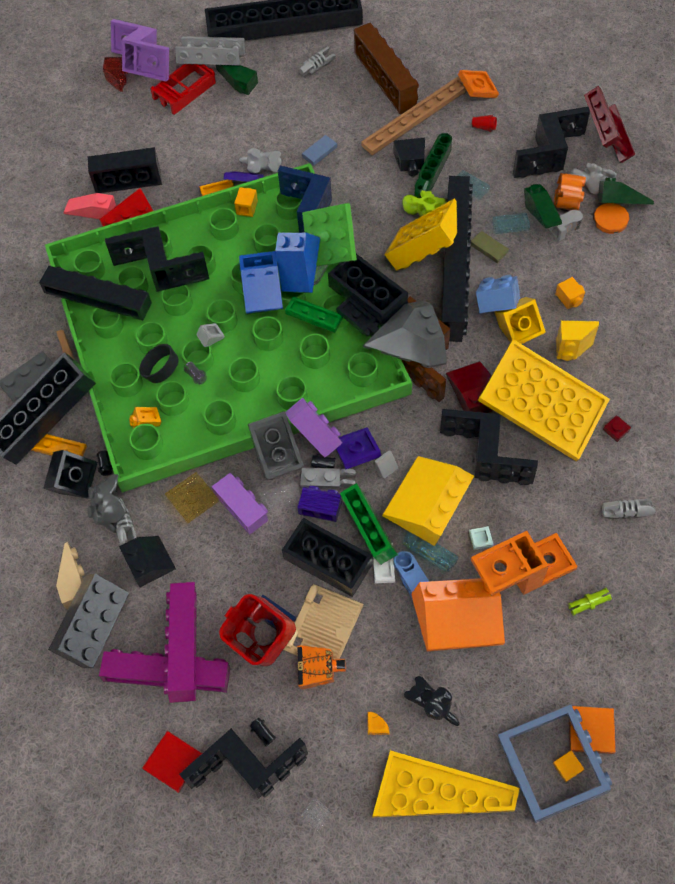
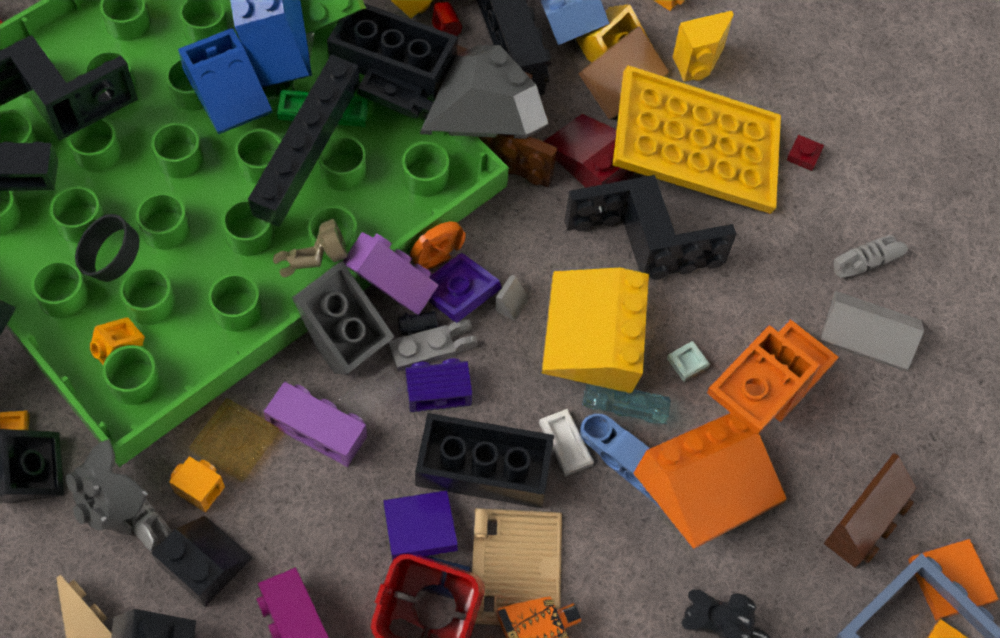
camera: 30 degrees left, 0 degrees up
(105, 467) = (73, 435): black pin -> none
(160, 515) = (197, 483): none -> light orange brick
(199, 376) = (182, 249): pin -> none
(209, 334) = (172, 181): light grey slope -> none
(276, 582) = (420, 524): none -> dark purple tile
(282, 399) = (328, 240): none -> dark tan piece
(292, 331) = (304, 141): none -> black brick
(352, 418) = (436, 244): none -> orange tile
(368, 524) = (526, 391): green brick -> none
(417, 278) = (446, 19): none -> red brick
(525, 332) = (606, 72): none -> medium nougat tile
(554, 669) = (873, 514): none -> reddish brown slope
(589, 601) = (873, 400): lime pin -> none
(609, 556) = (872, 331): none -> light grey slope

